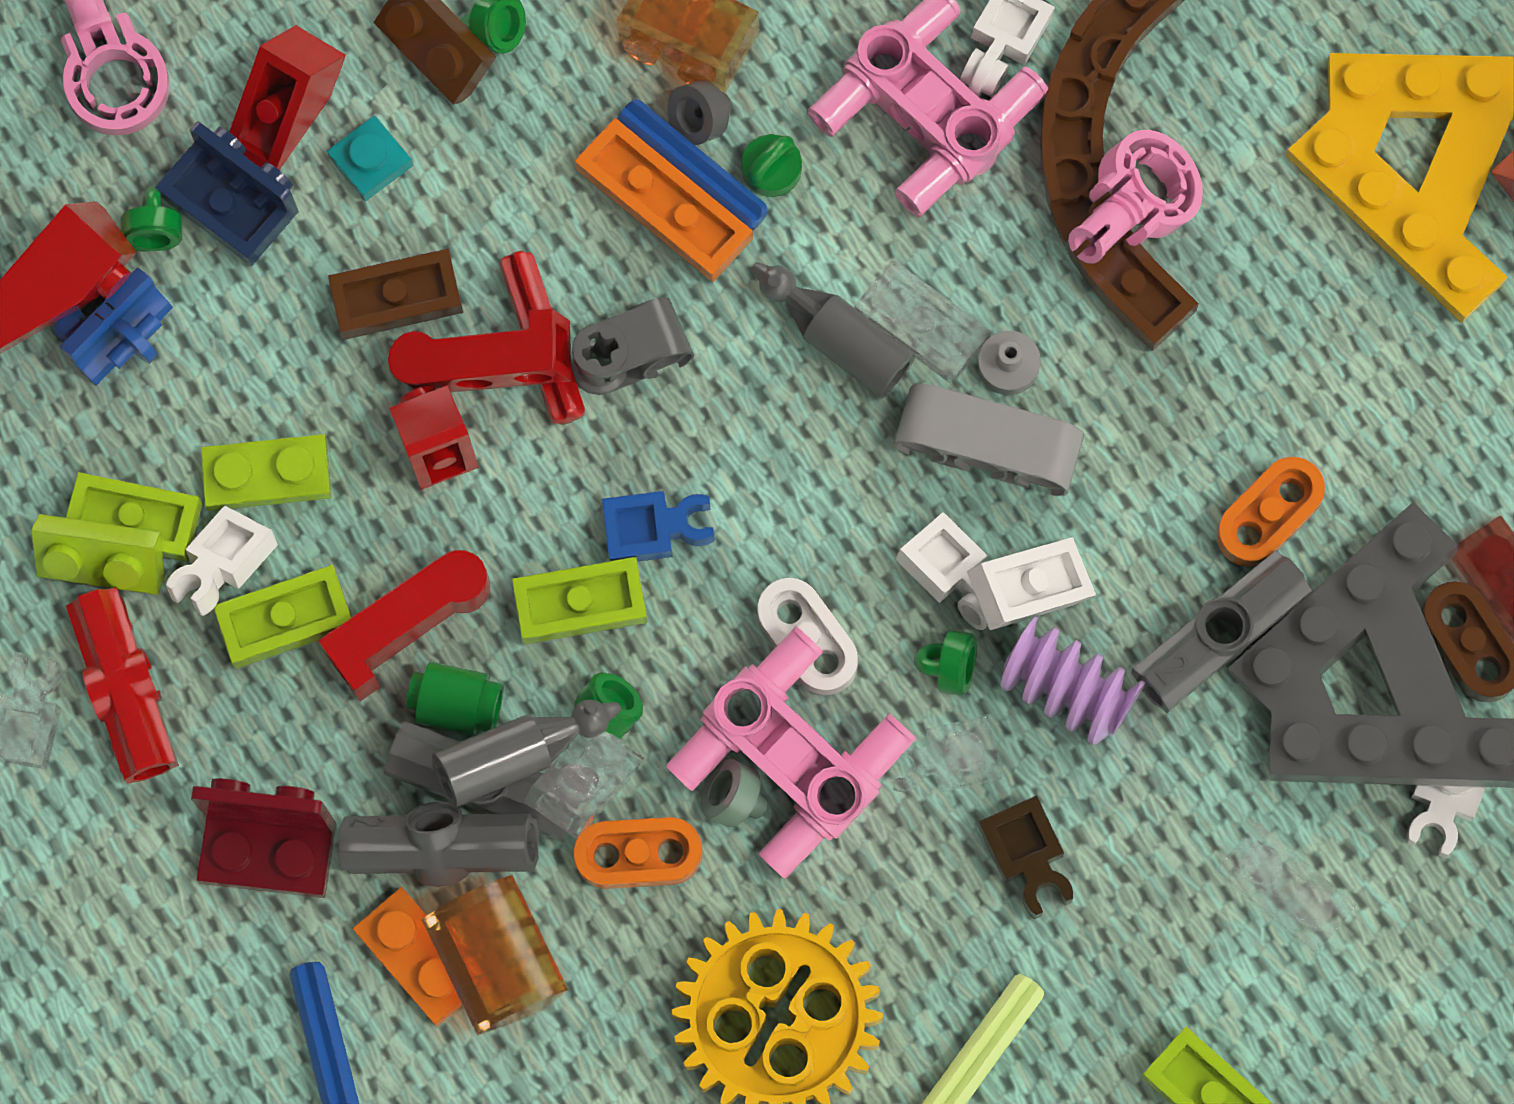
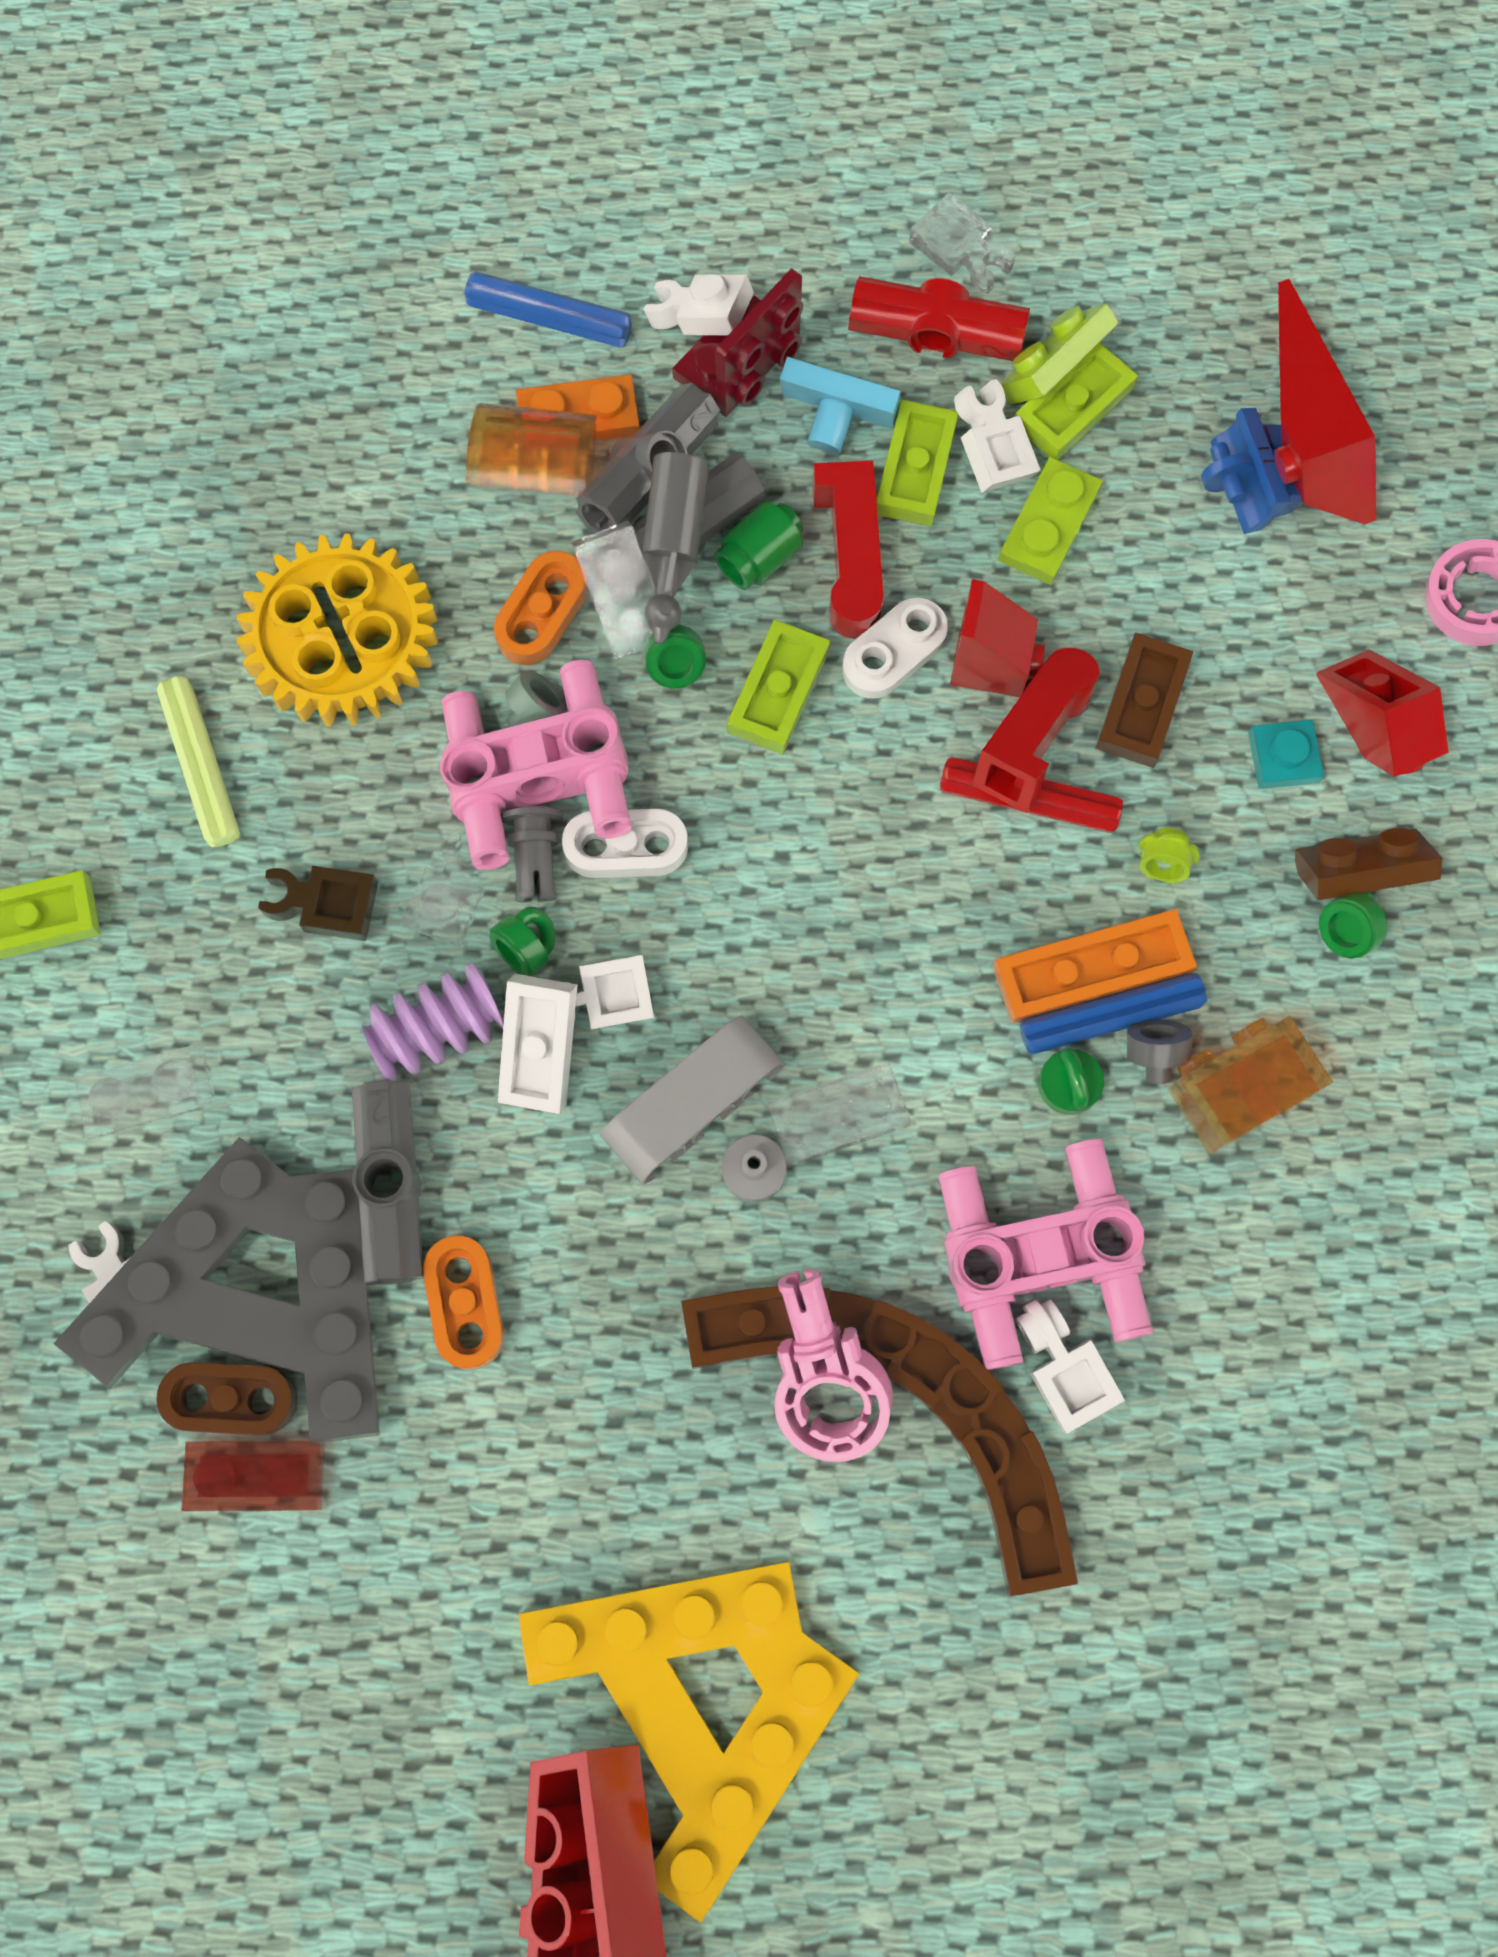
camera: 120 degrees right, 0 degrees up
(151, 225) = (1328, 545): green tile -> none
(229, 193) = (1317, 618): dark blue bracket -> none
(242, 896) = (707, 307): none -> white plate
(268, 720) = (838, 401): none -> medium azure tile
(476, 528) = (896, 646): none -> white plate
(526, 198) = (1169, 847): none -> lime plate
(635, 342) = (971, 860): dark grey piece -> none
(644, 526) = (805, 775): blue plate -> none
(839, 331) = (876, 1036): dark grey wheel -> none
(863, 709) = (533, 850): none -> dark grey pin

